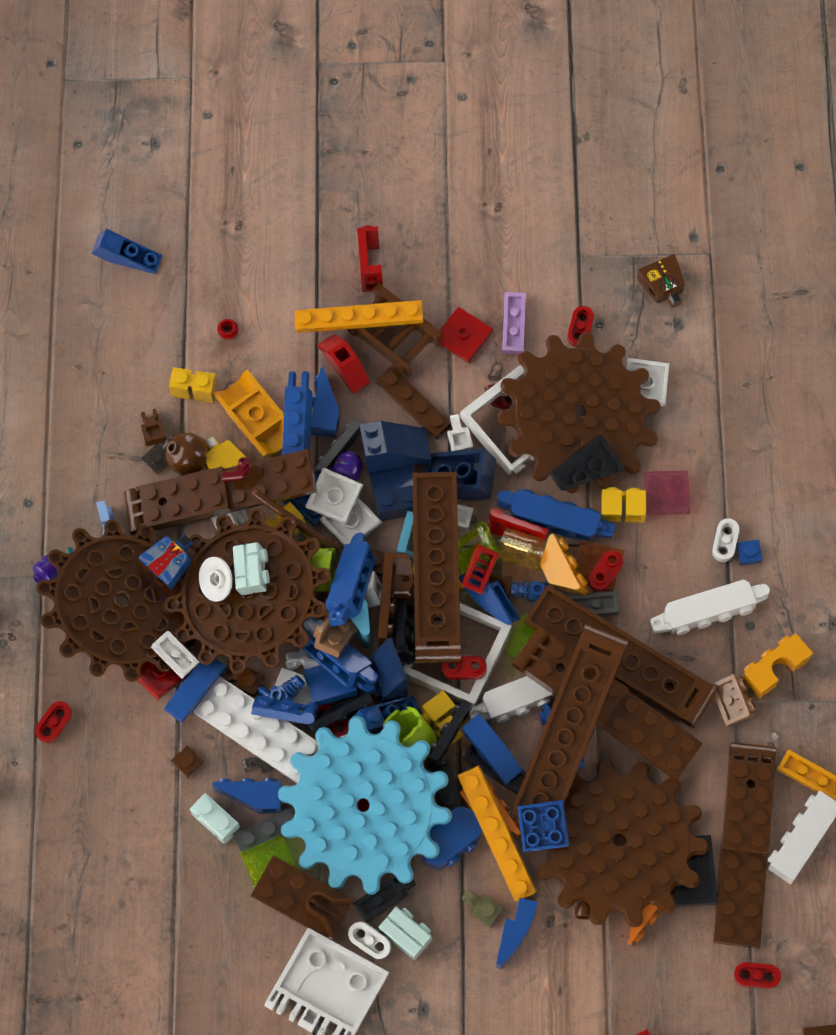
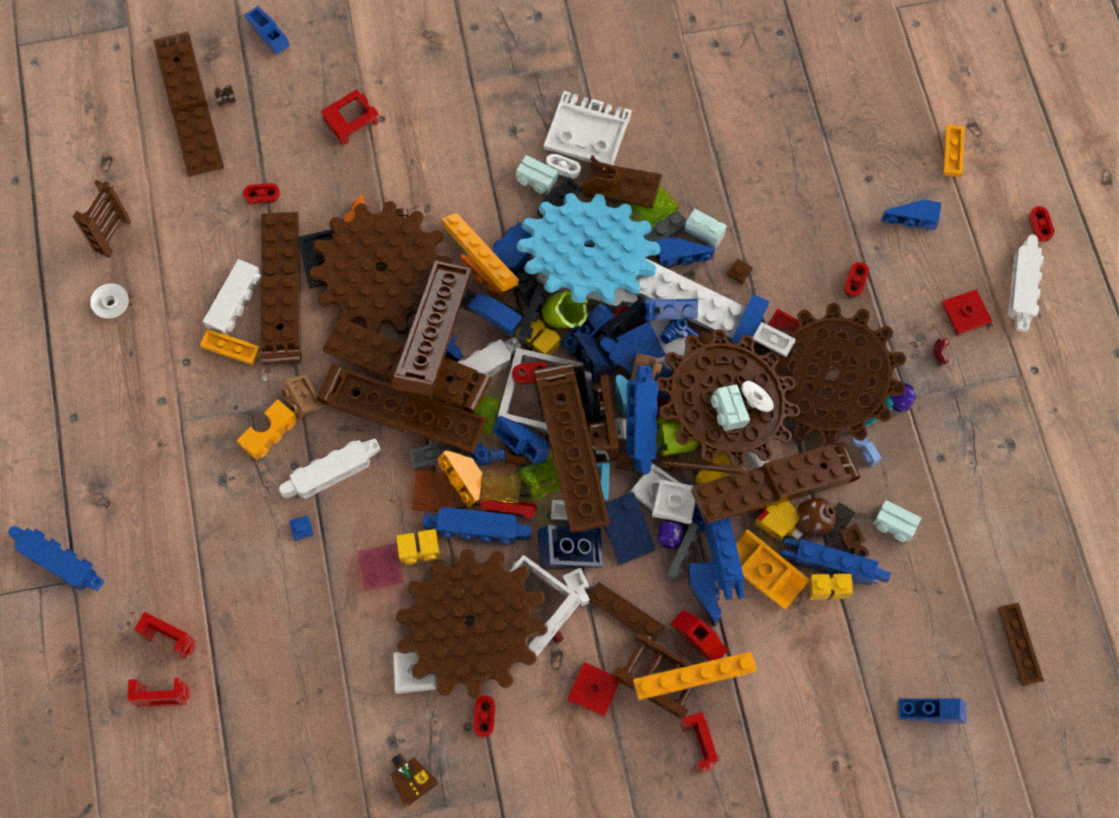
camera: 165 degrees right, 0 degrees up
(15, 298) = (1020, 644): none -> reddish brown plate
(100, 439) = (896, 521): none -> light aqua brick
(168, 559) = (803, 410): torso -> none
(180, 408) = (835, 561): none -> blue hinge
(227, 323) = (817, 646): red plate -> none
(239, 473) = (762, 488): dark red arm -> none
(393, 446) = (632, 561): dark blue slope -> none
(484, 910) = (480, 204): olive plate -> none
(492, 555) = (529, 462): red slope -> none
(513, 323) = (548, 708): lavender plate -> none
(516, 931) = (452, 190): blue slope -> none
(543, 826) = (443, 260): blue tile -> none
(587, 464) = (453, 569): black wing -> none
(605, 569) = (425, 480): red plate -> none
(725, 541) = (323, 533): white plate -> none

